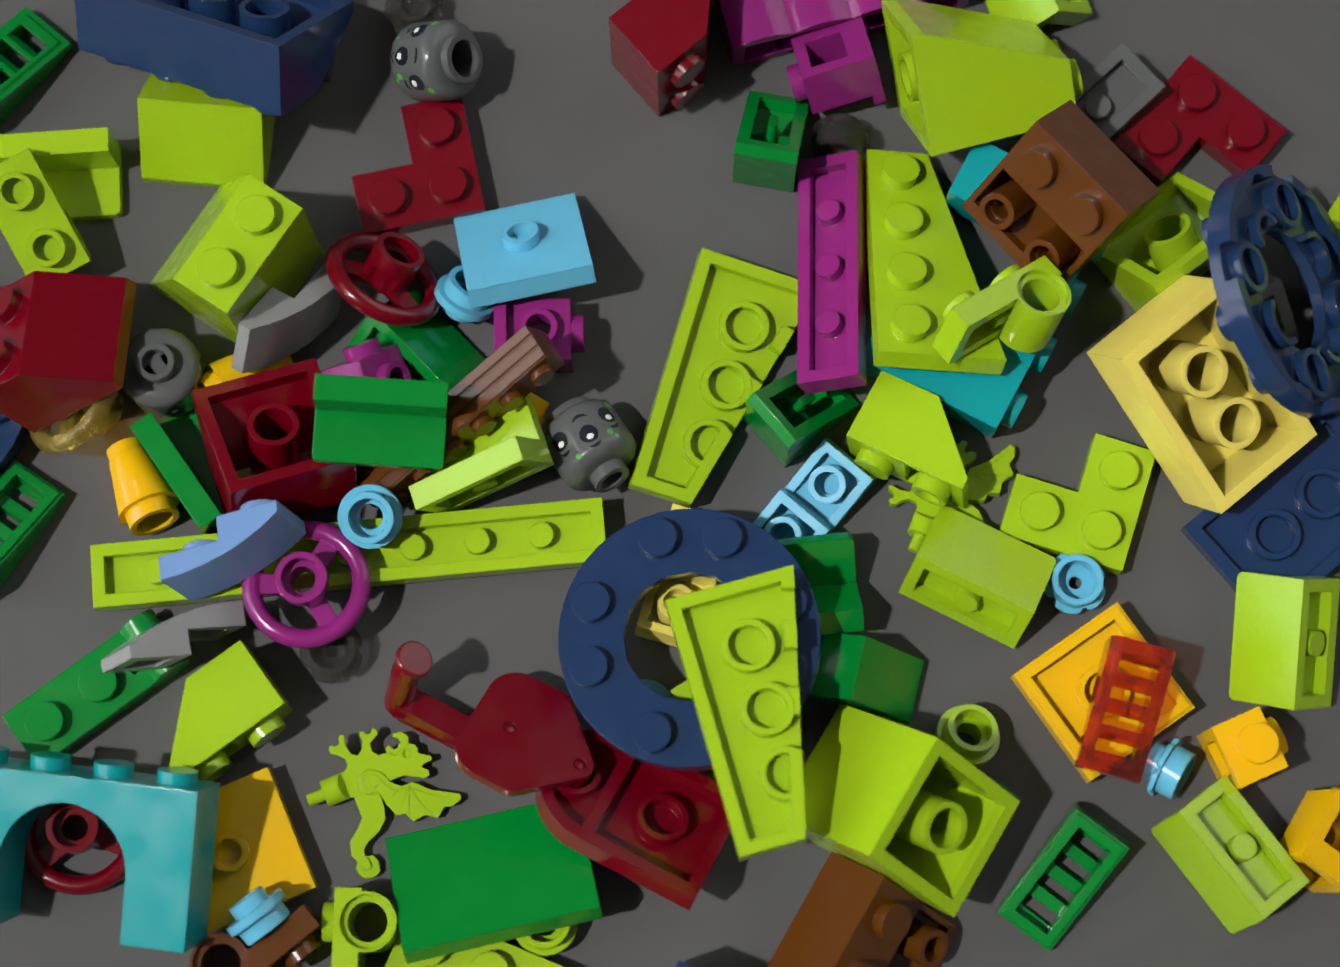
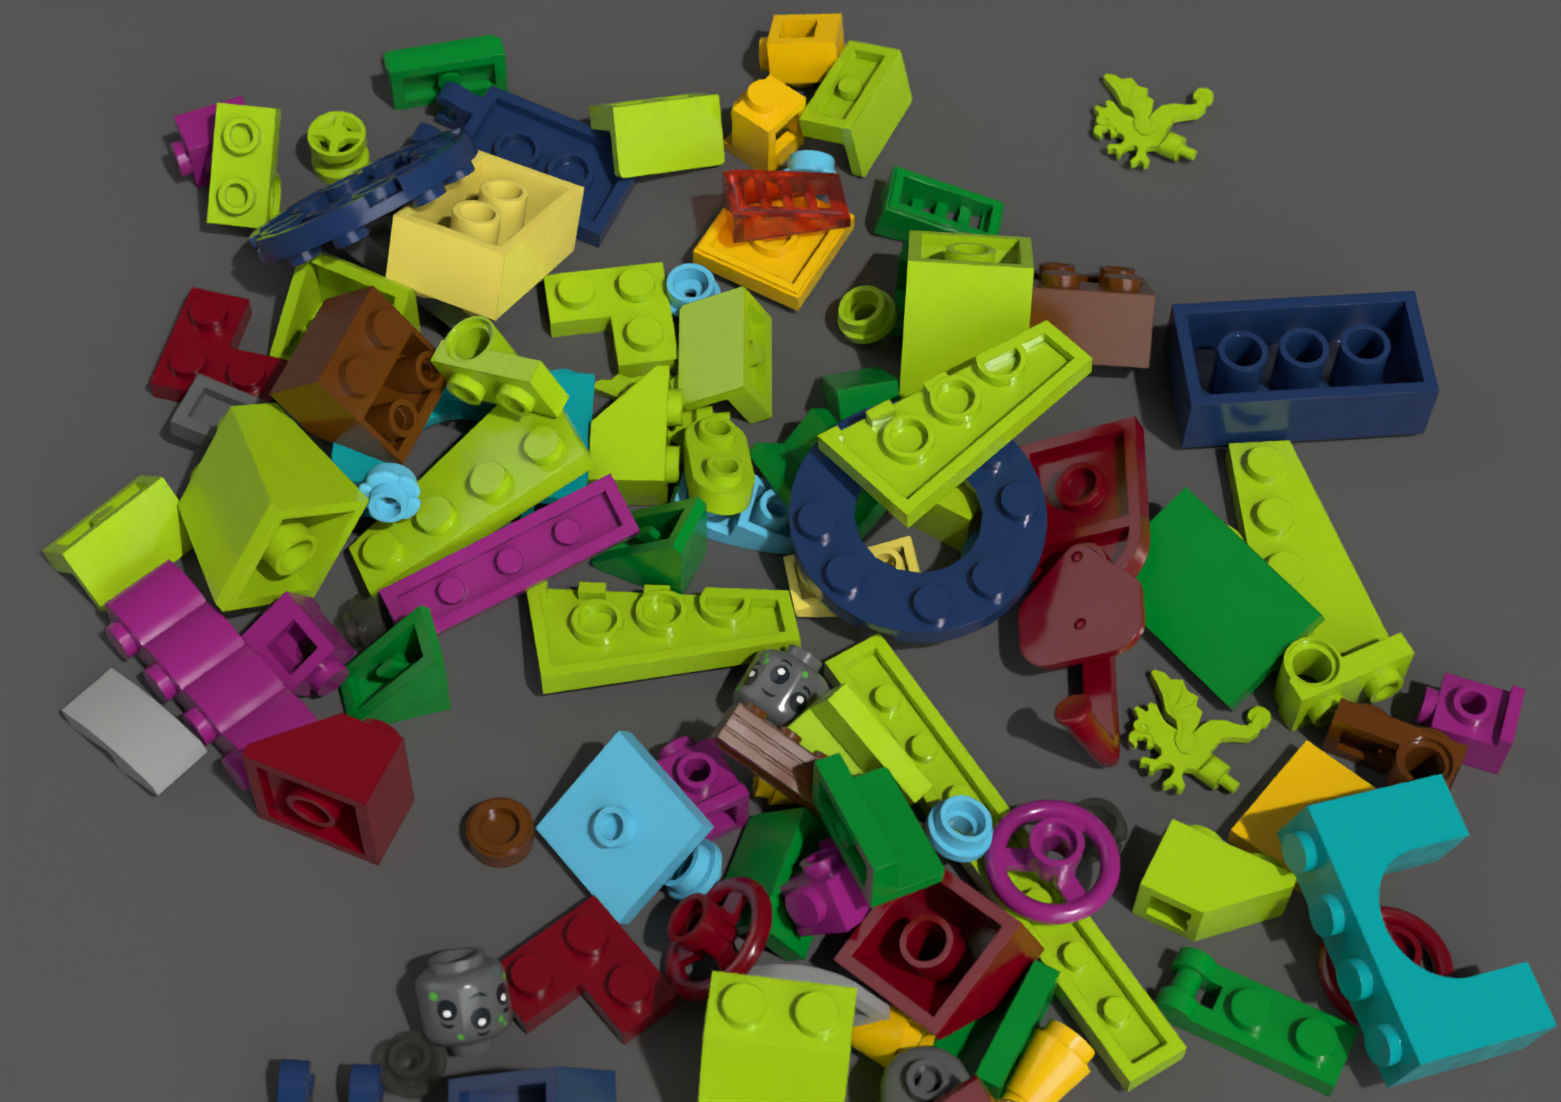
camera: 120 degrees left, 20 degrees down
(172, 638) = (1178, 947): light grey slope -> none
(245, 545) = (1045, 903): medium blue slope -> none
(257, 914) = (1365, 754): medium azure plate -> none
(588, 166) = (500, 832): none -> reddish brown tile
(848, 497) = (718, 465): none -> lime plate
(935, 181) = (391, 492): none -> medium azure plate

